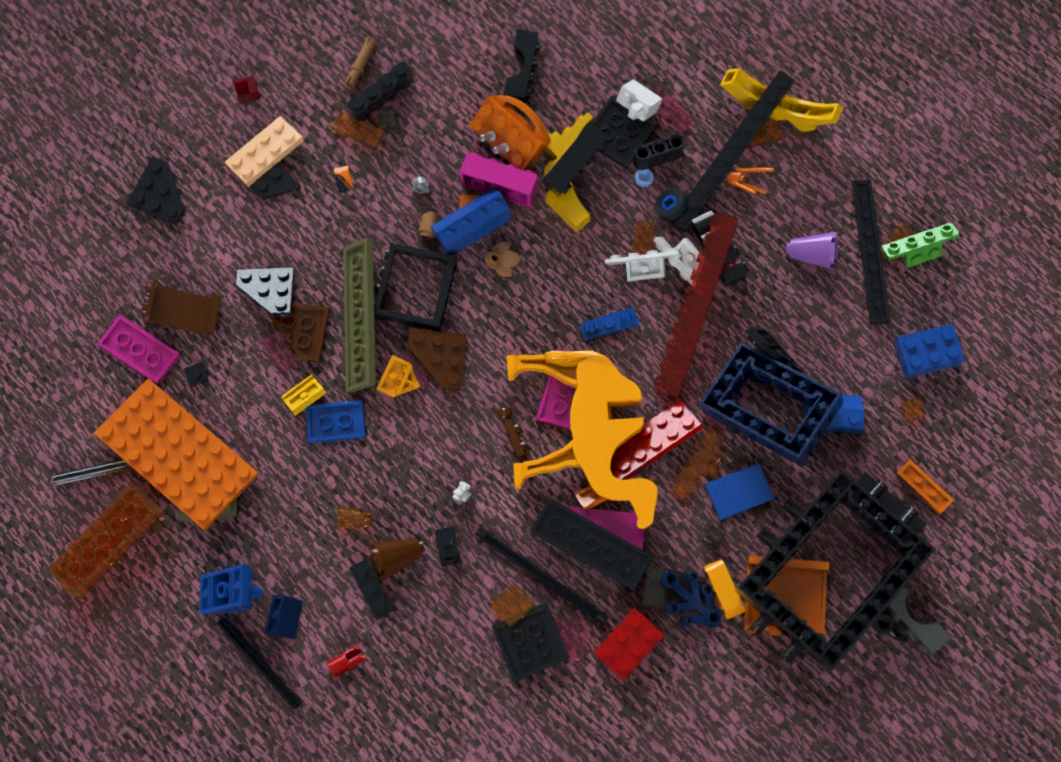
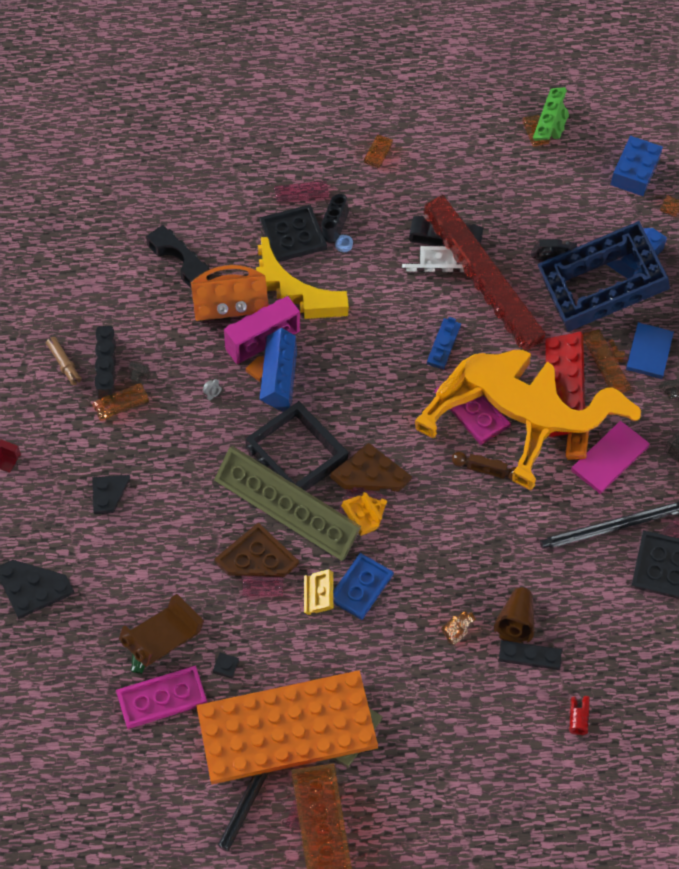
camera: 60 degrees left, 15 degrees down
(227, 590) = (450, 759): blue brick -> none
(259, 663) = (527, 786): black axle -> none
(264, 151) = (73, 480): light nougat plate -> none
(268, 289) = (201, 555): plate -> none
(283, 616) = (501, 739): dark blue panel -> none
(343, 179) = (152, 441): sticker -> none
(428, 219) = (252, 406): medium nougat brick -> none
(448, 546) = (539, 569): black torso -> none
(462, 493) = (502, 531): white plate -> none
(505, 259) = (326, 377): medium nougat plate -> none
(512, 605) = (625, 558): clear orange piece -> none
(575, 159) = (297, 264): black wedge -> none
(591, 544) = (618, 469): black plate -> none
(639, 100) = (281, 201): white hinge -> none
(643, 237) = (395, 276): clear orange plate -> none
(644, 266) = (419, 287): white bracket -> none
(675, 209) = (392, 238): black bush -> none
(735, 148) = (380, 172): black plate -> none
(737, 179) = (401, 185): orange plant -> none
(800, 113) = (389, 113): yellow arch -> none
(815, 249) = (502, 175): medium lavender cone -> none
(870, 252) = (530, 149): black plate -> none

